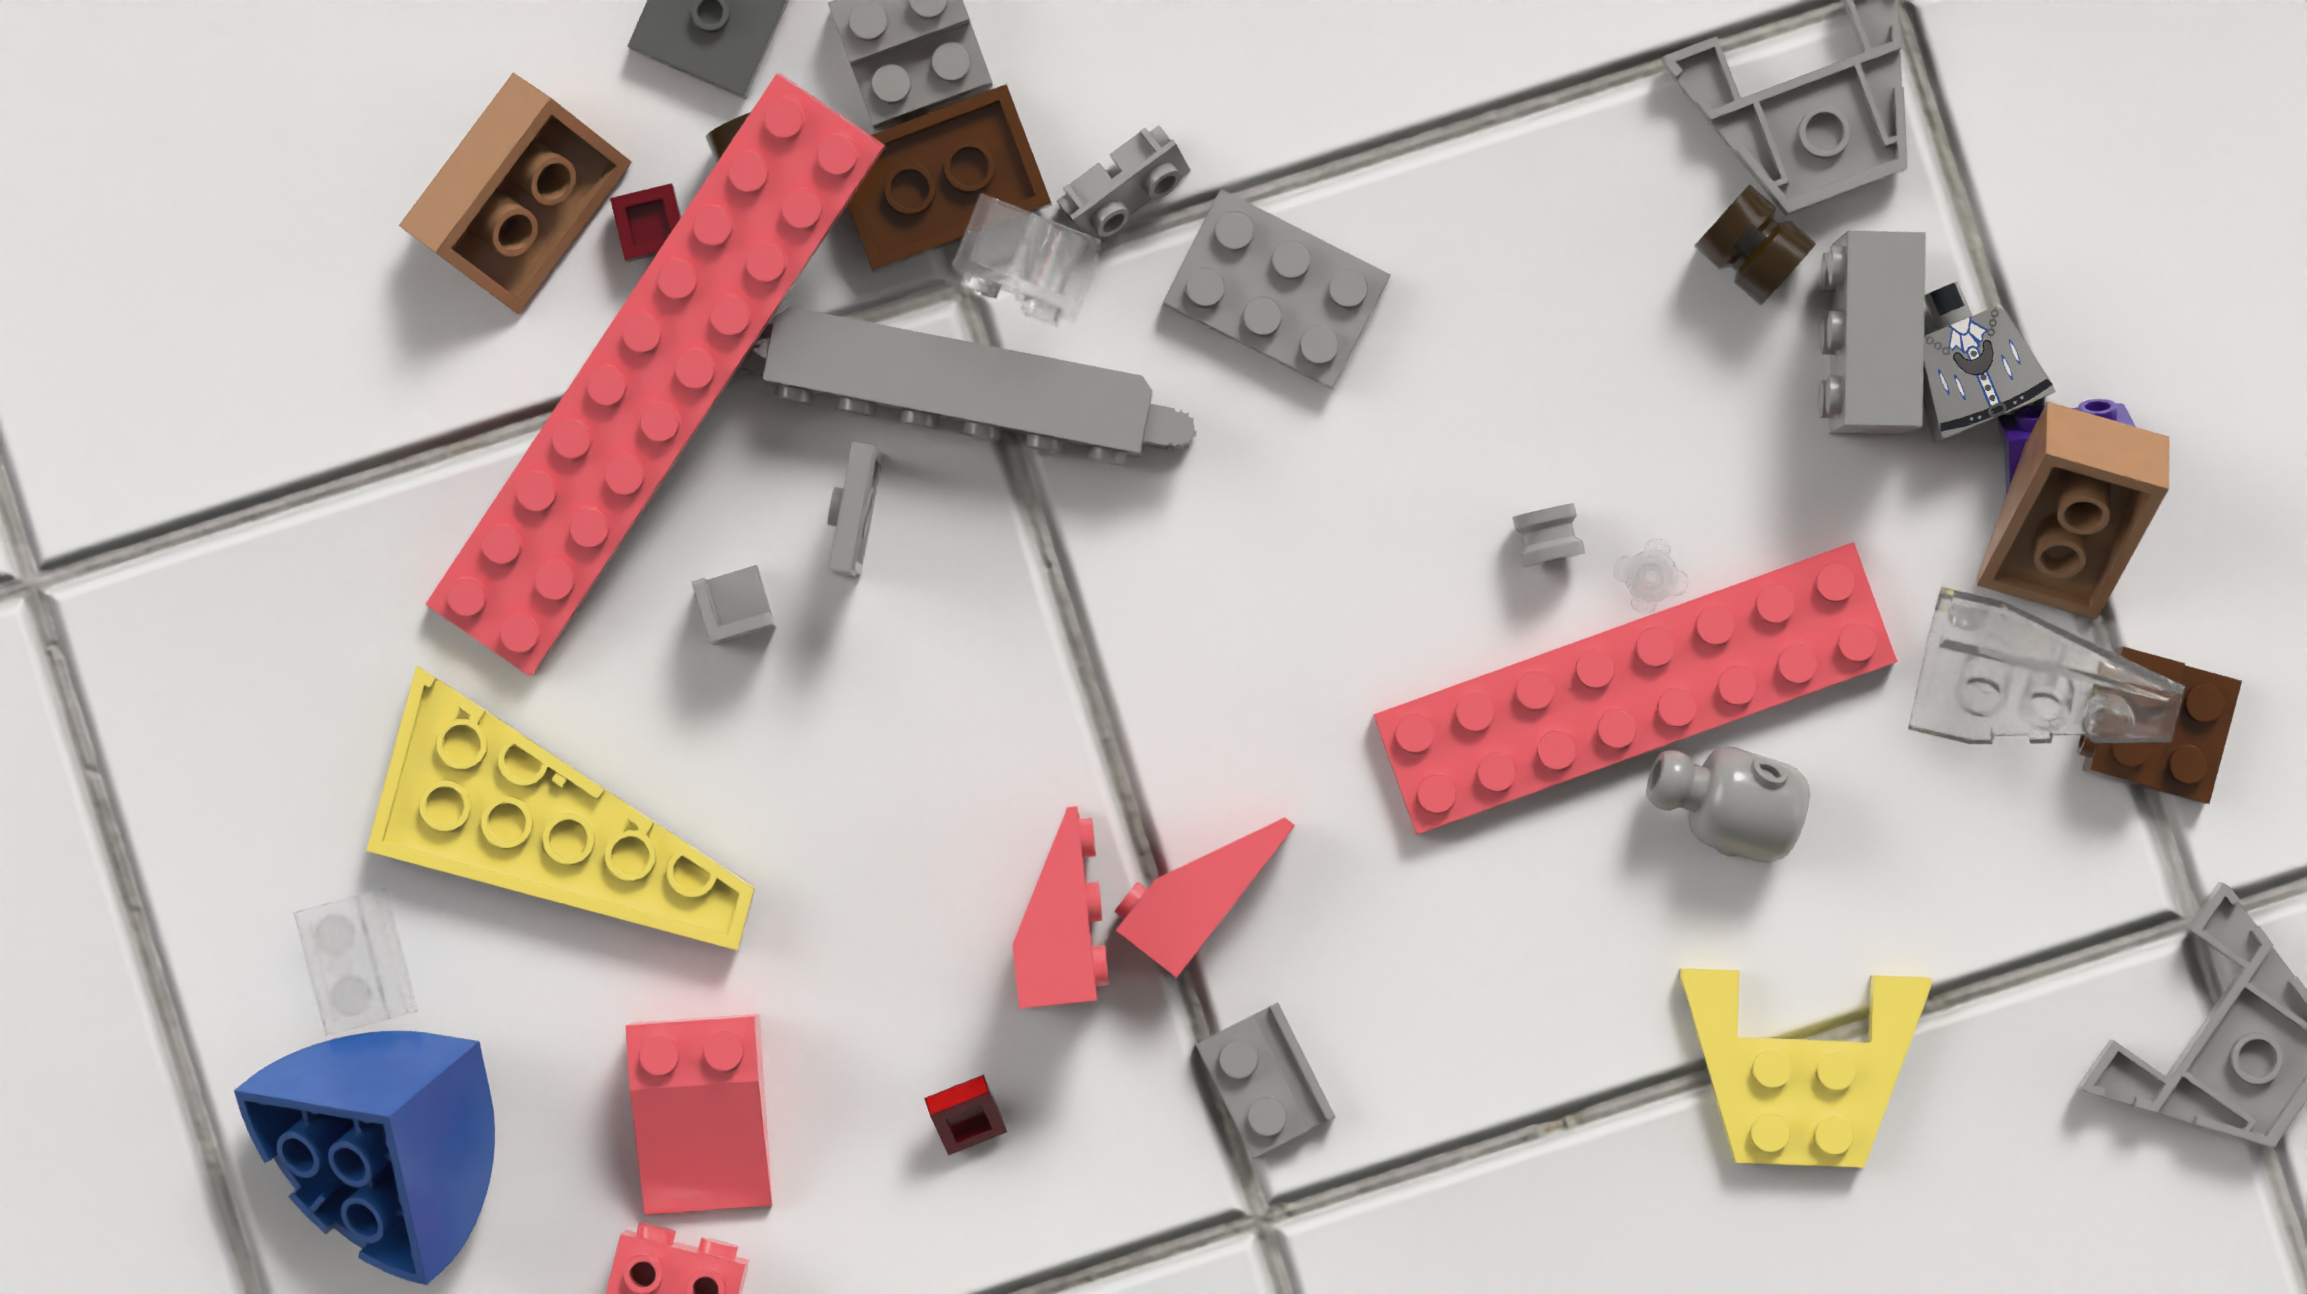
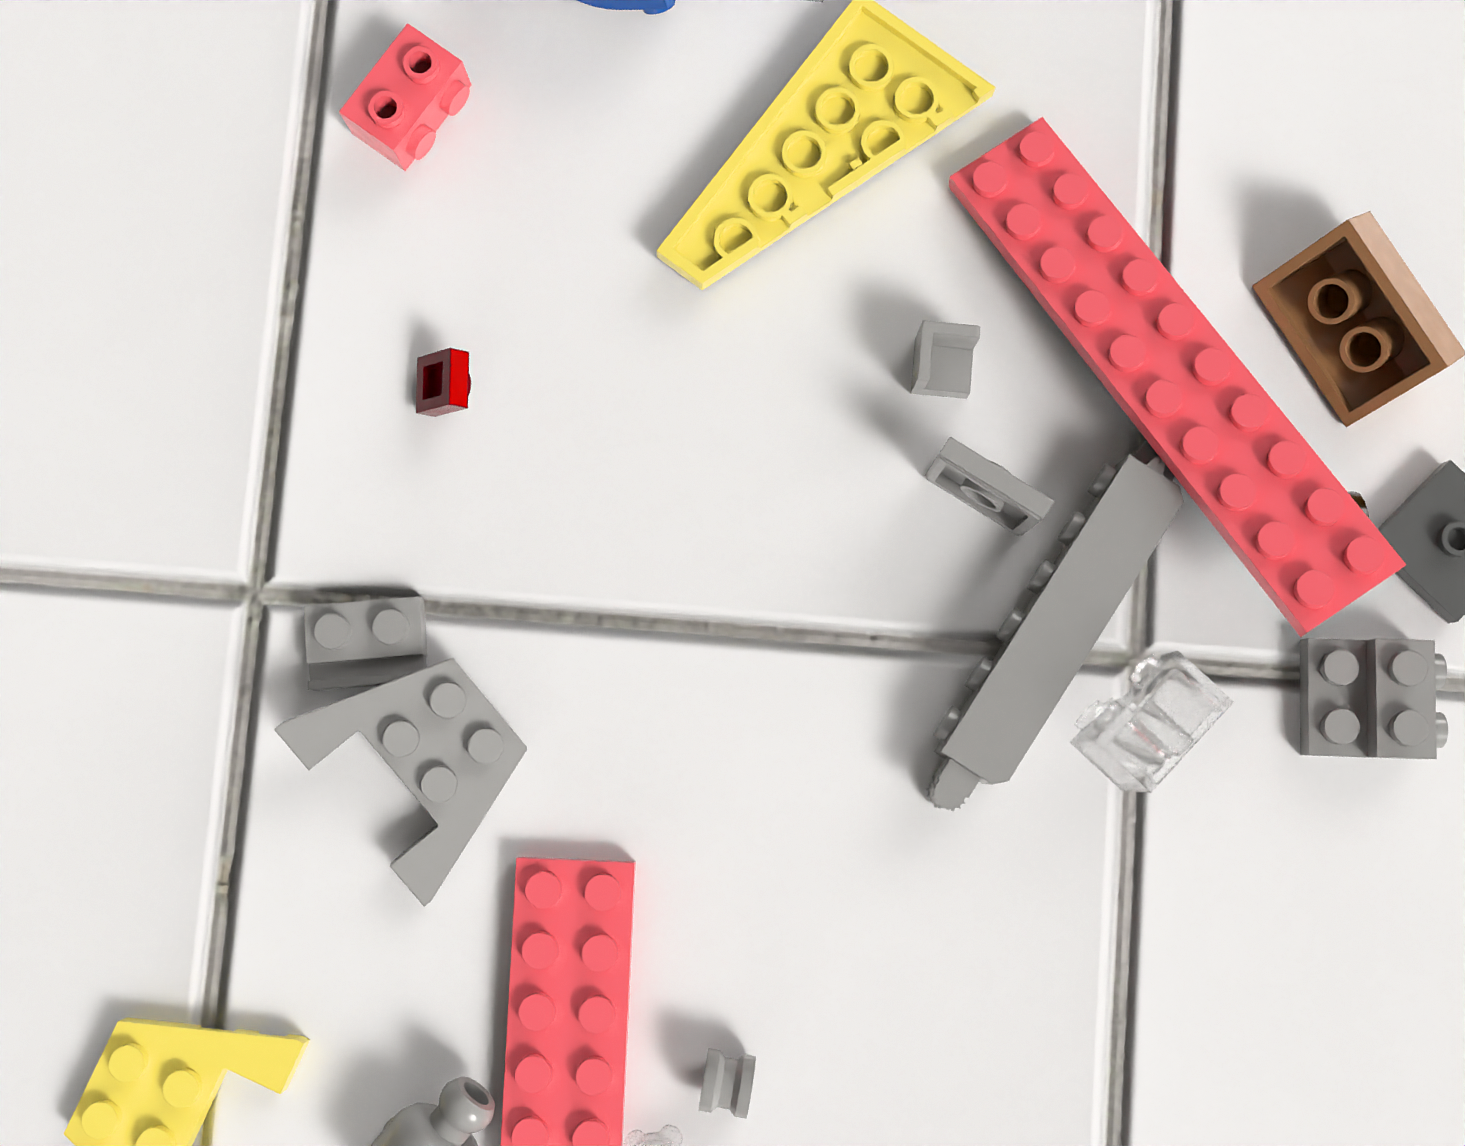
camera: 115 degrees right, 5 degrees down
(645, 220) = (1304, 410): dark red plate -> none
(699, 1113) = (541, 172): coral slope -> none
(934, 173) = (1257, 662): reddish brown plate -> none
(1054, 939) = (544, 506): coral slope -> none
(1149, 170) = (1181, 859): light grey hinge -> none
(1189, 902) = (540, 640): coral slope -> none
(1276, 289) = (1035, 929): light grey plate -> none
(1336, 955) = (440, 744): none -> light grey wing

